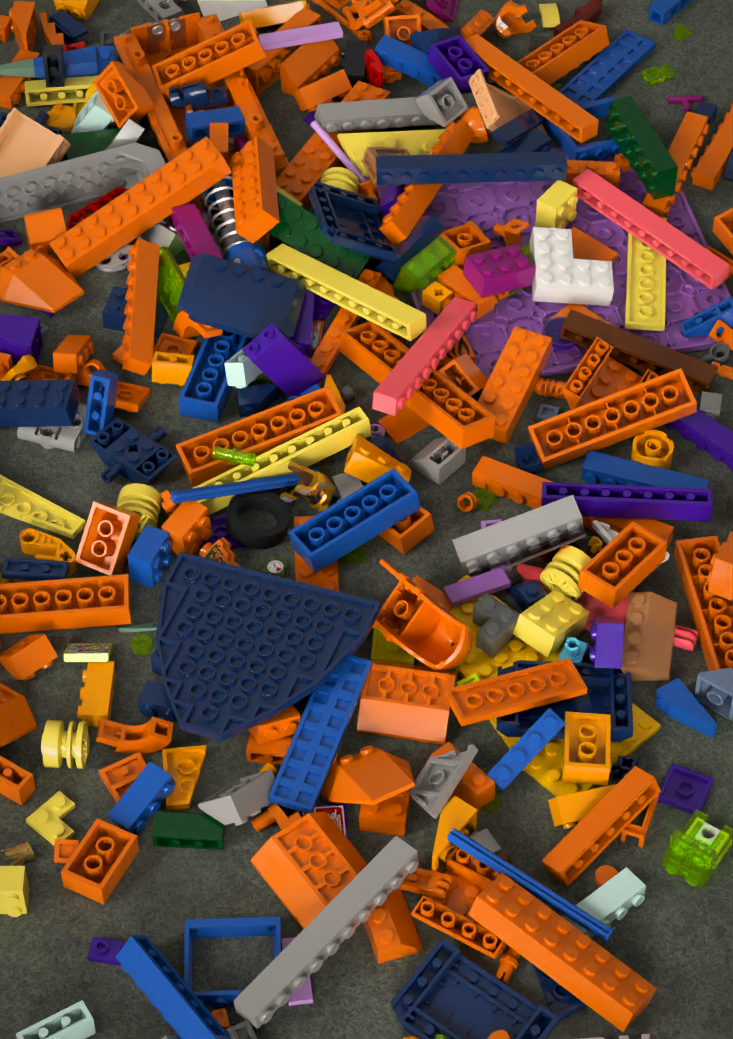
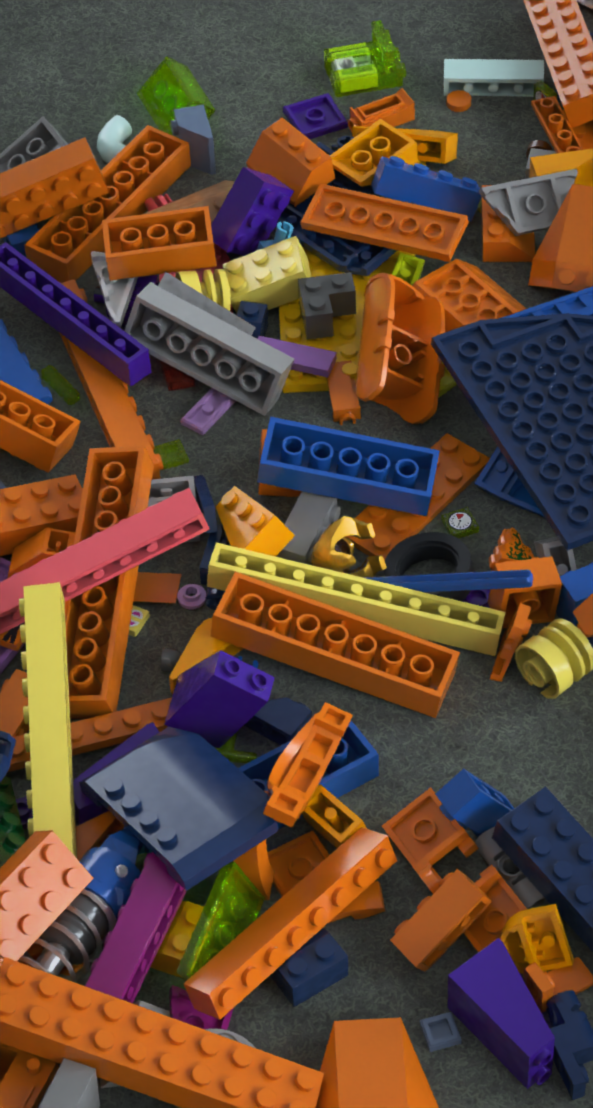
camera: 135 degrees left, 0 degrees up
(131, 452) = (489, 735): dark blue slope -> none
(197, 342) = (304, 764): none -> orange piece
(234, 456) = (399, 616): clear neon green pin -> none
(241, 370) = (259, 737): light aqua brick -> none
(417, 464) = (205, 502): none -> dark blue tile
(473, 502) = (194, 452): orange bush -> none
(527, 458) = (78, 451): dark blue bracket -> none
(531, 885) = (517, 45): blue axle -> none
(601, 826) = (430, 109): orange brick -> none
(626, 698) = (292, 160): none -> orange slope
(684, 707) = (234, 156): blue slope -> none

